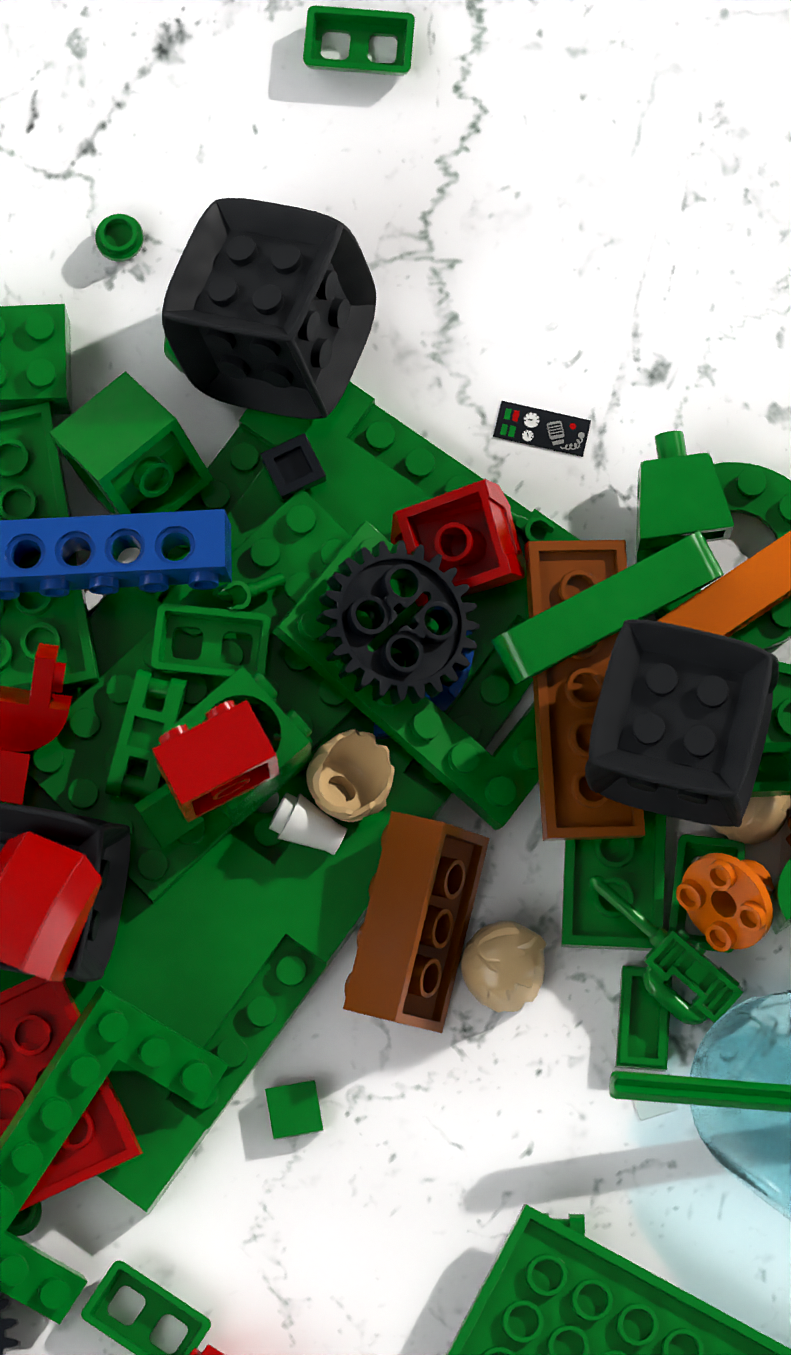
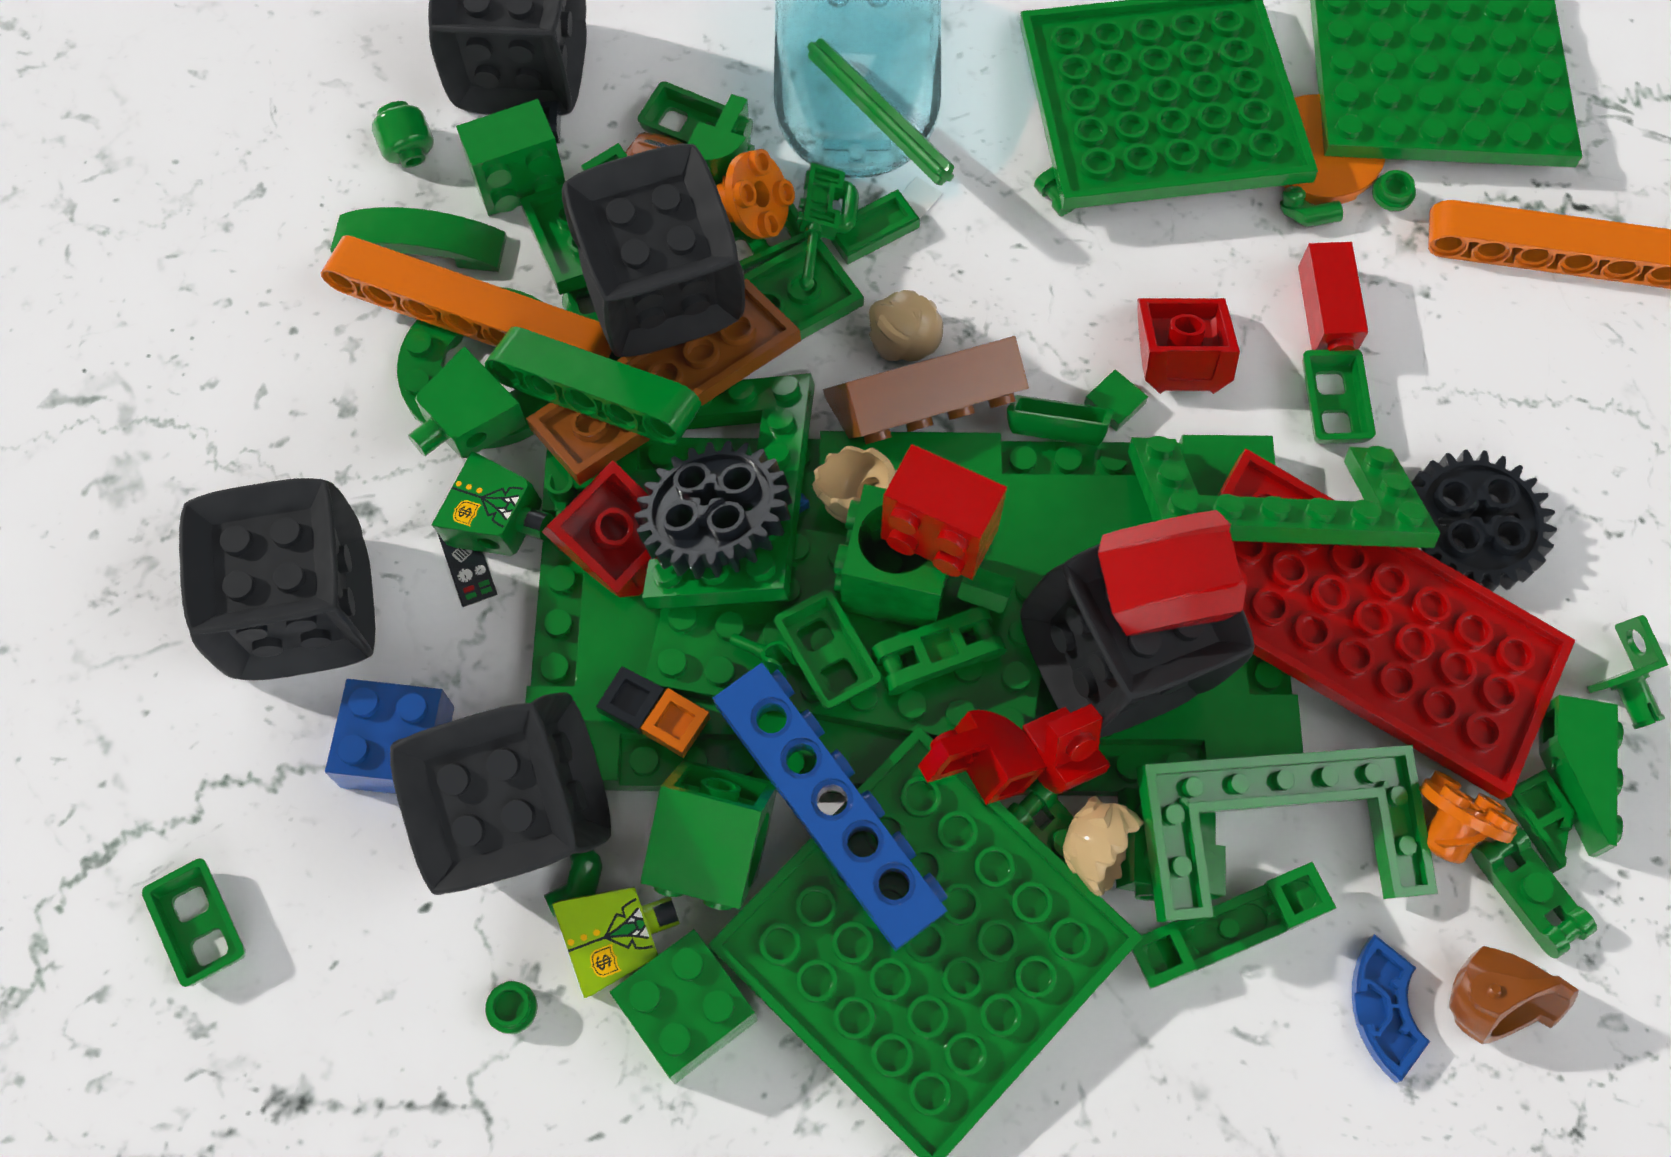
camera: 125 degrees left, 10 degrees down
(114, 336) = (611, 934): none -> lime torso
(247, 490) = (675, 722): none -> orange plate
(305, 1218) = (1187, 343): none -> red slope
(309, 1041) = (1059, 420): none -> green piece
(414, 266) = (370, 721): none -> blue brick
(569, 471) = (490, 509): none -> green torso
(599, 243) = (276, 579): none -> black piece

